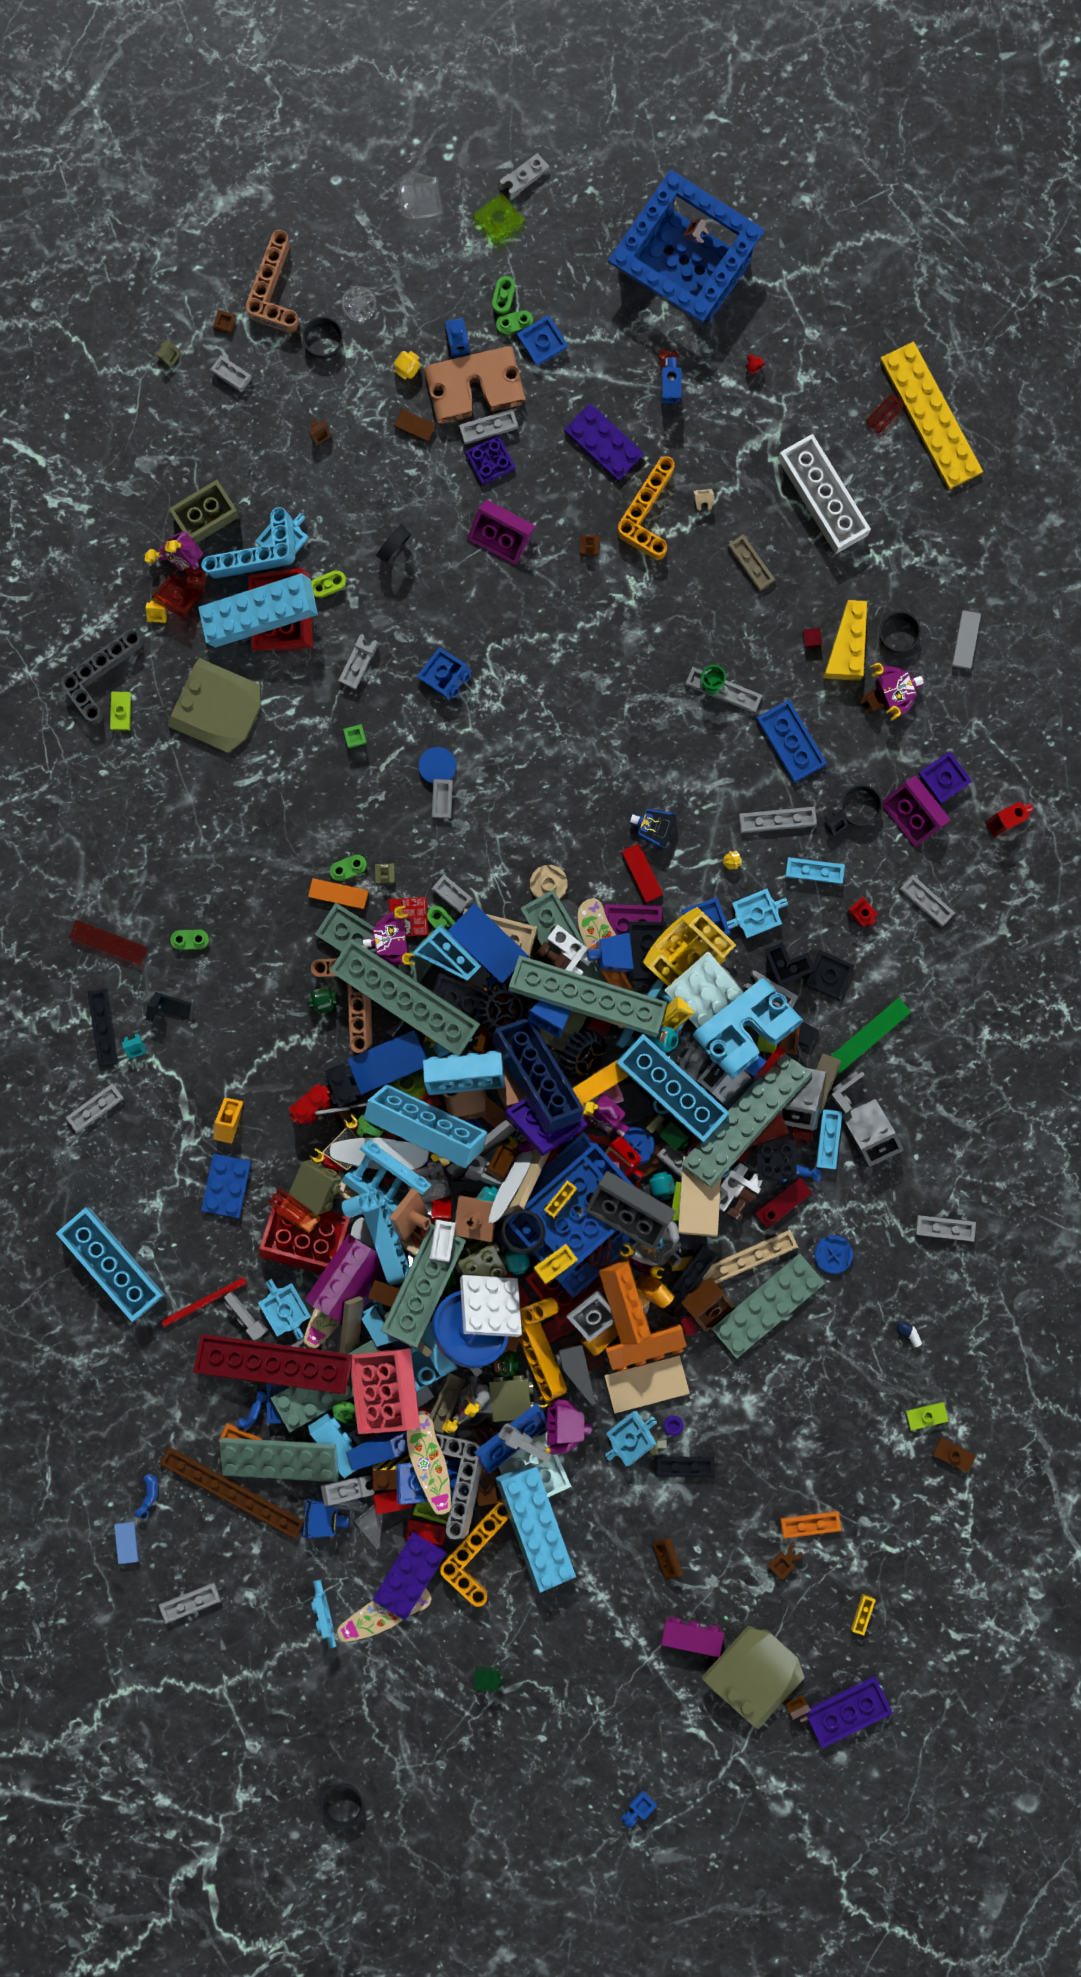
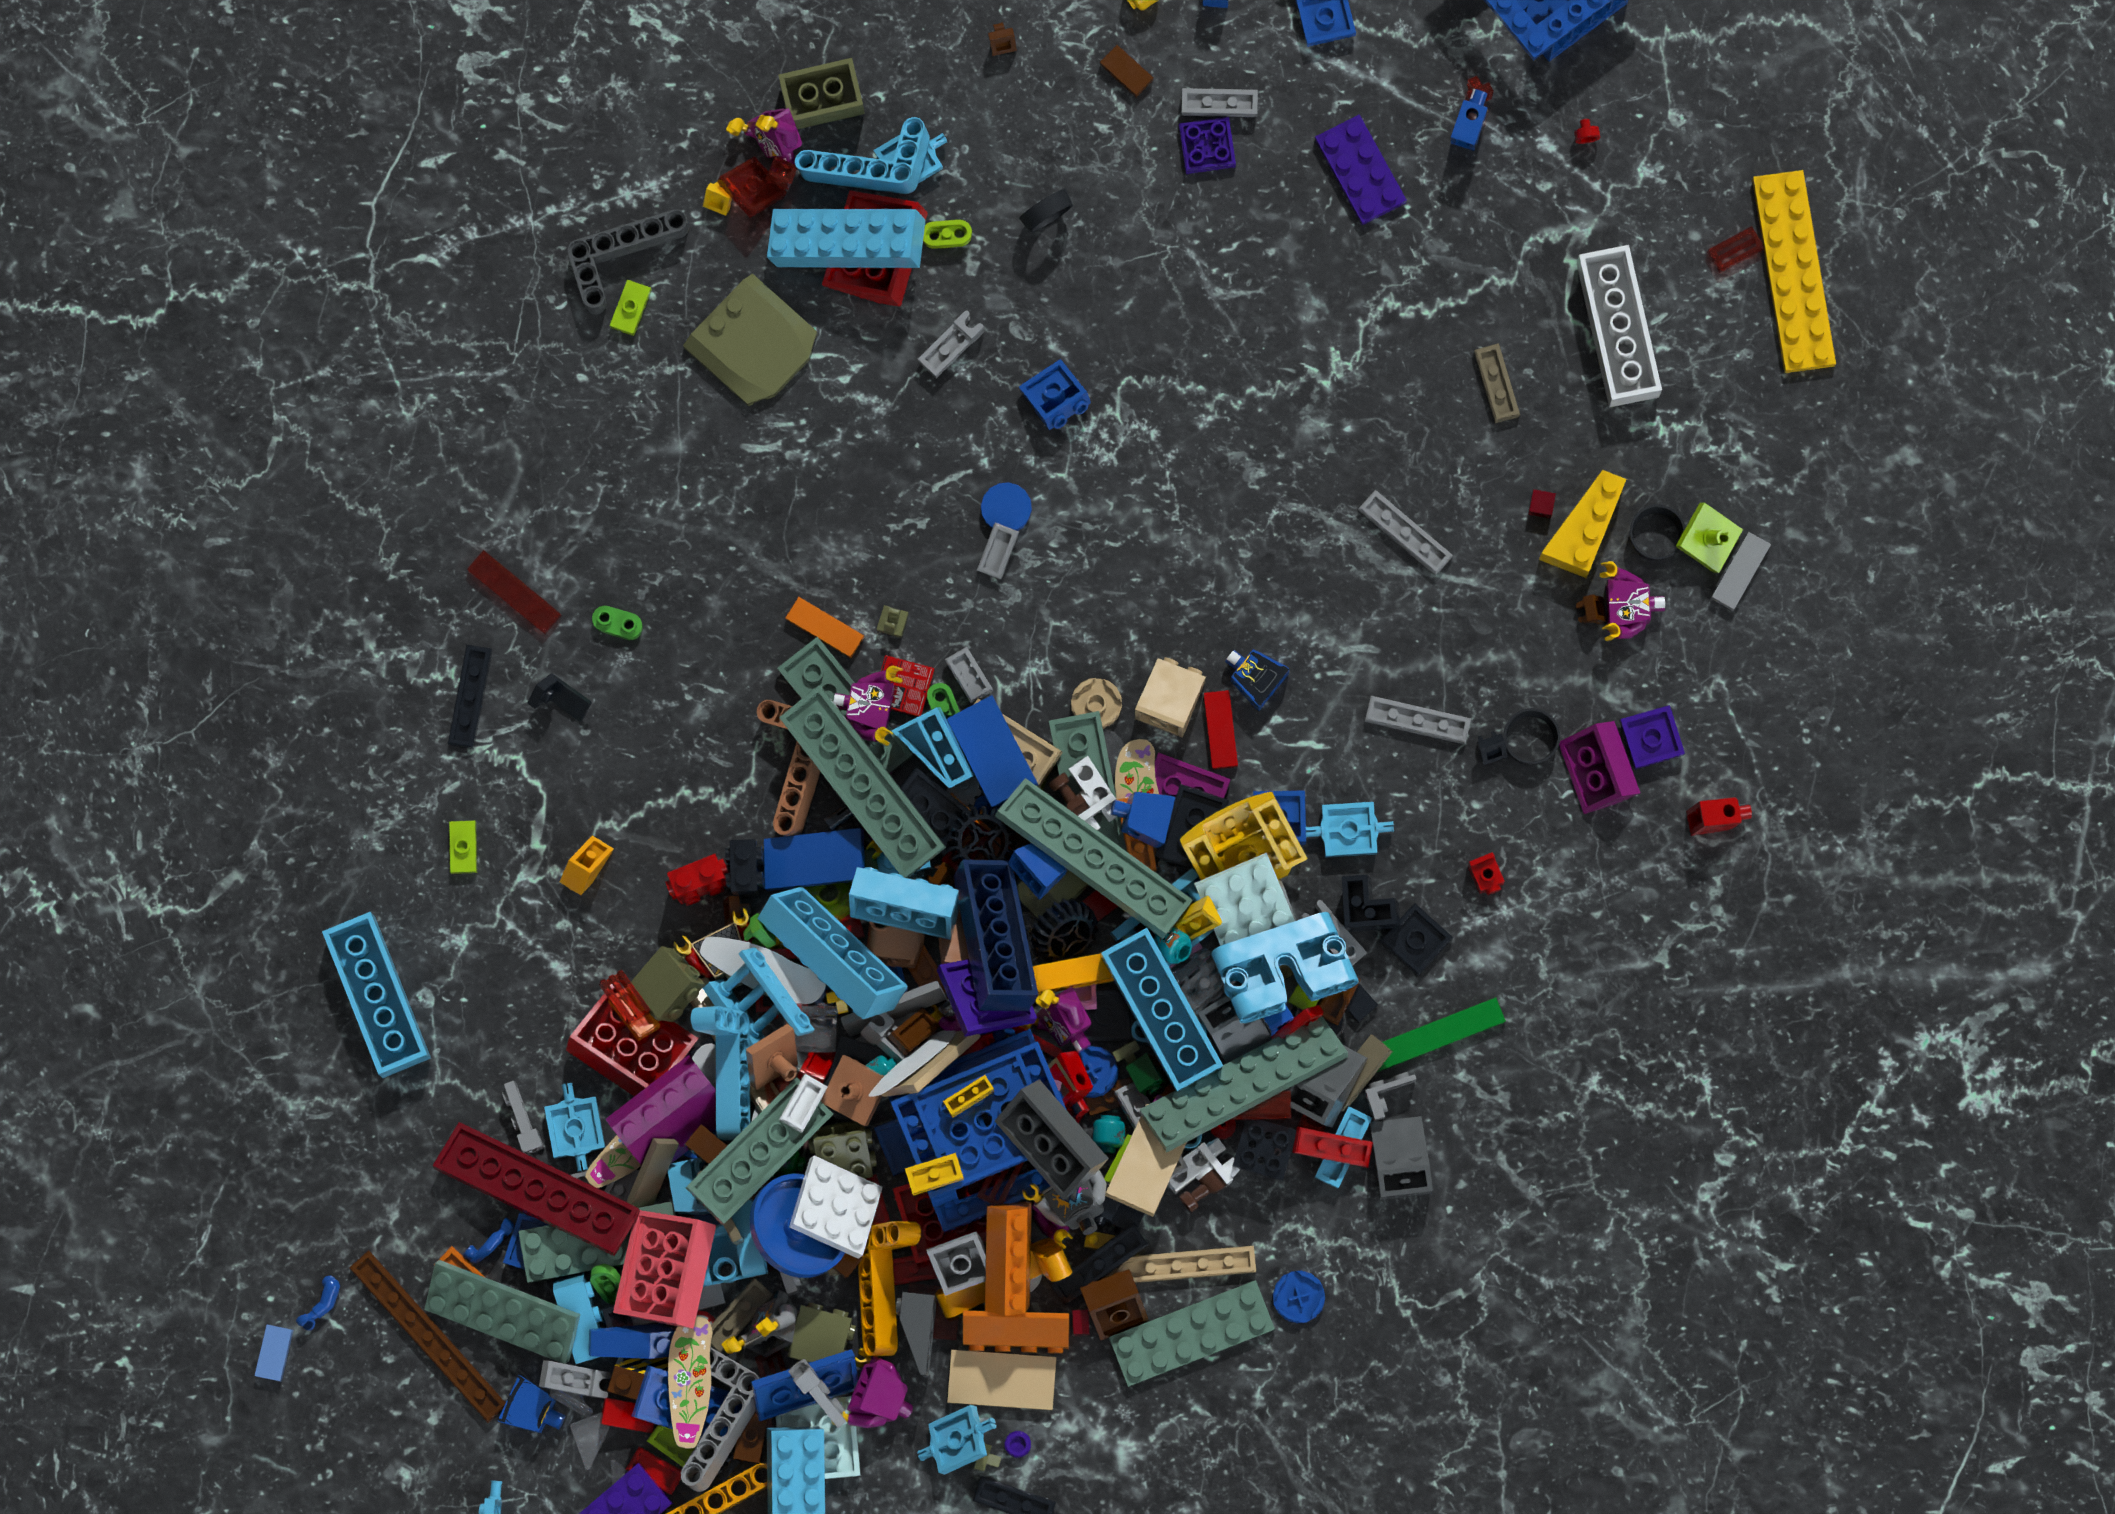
camera: 25 degrees right, 5 degrees down
(94, 1108) = (424, 794): light grey tile -> none
(134, 1047) = (500, 733): teal tile -> none
(135, 1136) = (463, 847): none -> lime plate
(189, 1603) = (326, 1456): light grey tile -> none
(203, 1302) = (476, 1083): red axle -> none
(226, 1185) = (555, 947): blue plate -> none
(321, 1000) = (757, 754): dark green head -> none
(339, 1109) = (731, 896): light grey piece -> none
(348, 868) = (848, 601): bright green plate -> none
(355, 736) = (914, 435): bright green tile -> none
(487, 369) = (1240, 27): nougat connector -> none
(501, 532) = (1189, 239): magenta slope -> none
(506, 1365) = (829, 1291): dark green head -> none
(517, 1262) = (891, 1163): teal head -> none
(536, 1245) = (916, 1144): black tyre -> none
(589, 545) = (1297, 293): reddish brown tile -> none
(599, 861) = (1170, 696): none -> tan slope
(643, 508) = (1383, 269): light orange beam -> none
(702, 496) = (1464, 279): tan tile -> none
(712, 679) = (1393, 513): green wheel -> none
(732, 860) = (1341, 751): yellow plate -> none
(783, 1203) = (1257, 1209): dark red piece -> none
(791, 741) = (1470, 626): blue tile -> none
(814, 870) = (1443, 800): medium azure plate -> none
(815, 1174) = (1310, 1186): blue arm -> none
(823, 1142) = (1332, 1147): none -> red tile
(910, 1332) = (1363, 1429): arm -> none
(927, 901) = (1575, 887): light grey tile -> none
(937, 623) = (1709, 537): none -> lime tile
(945, 1228) = (1454, 1312): light grey plate -> none

